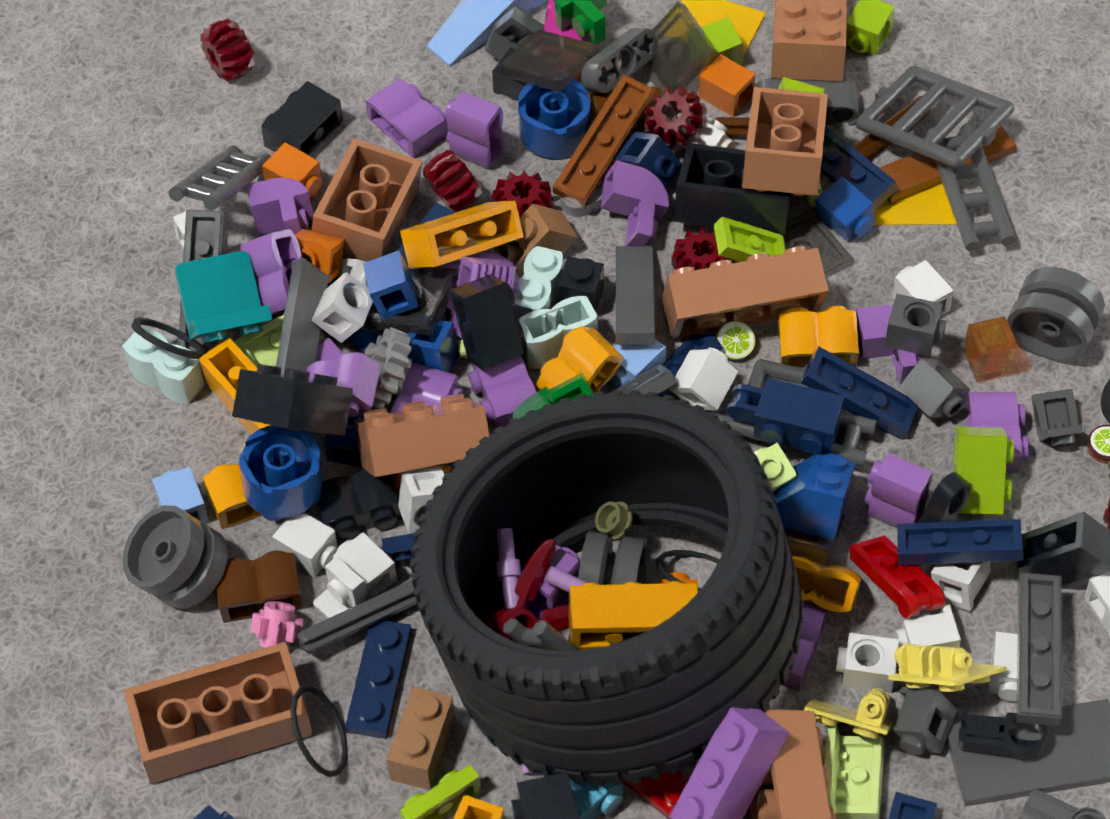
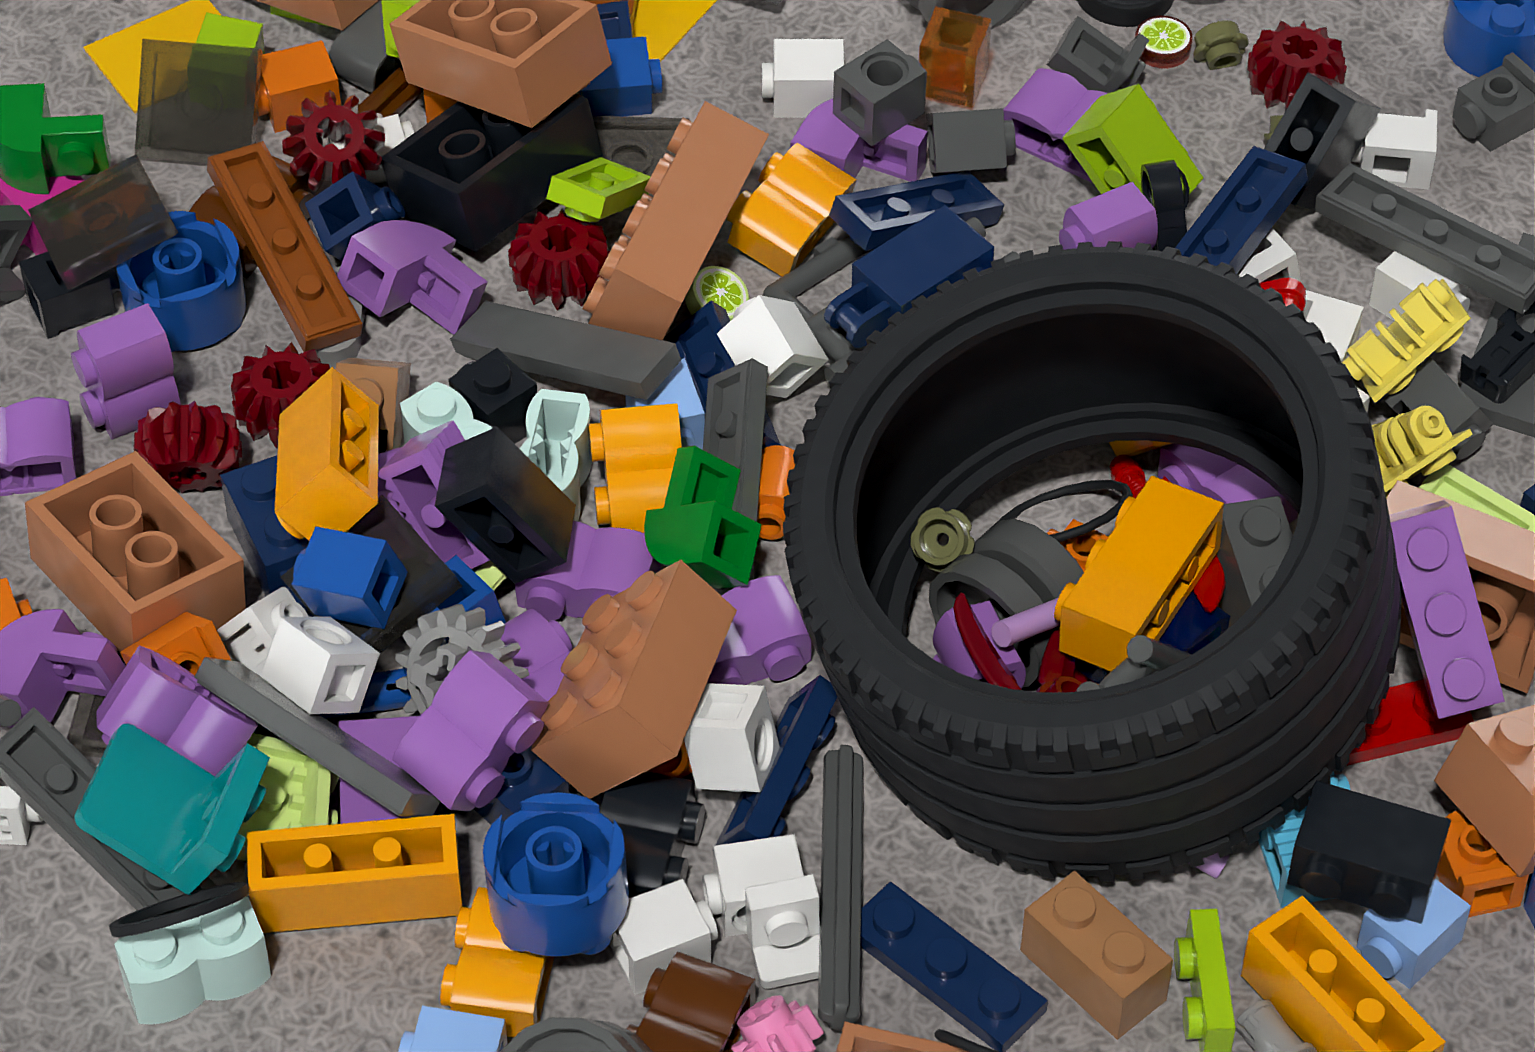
camera: 60 degrees left, 5 degrees down
(292, 400) = (486, 775): black brick -> none
(597, 81) = (165, 156): dark grey beam -> none

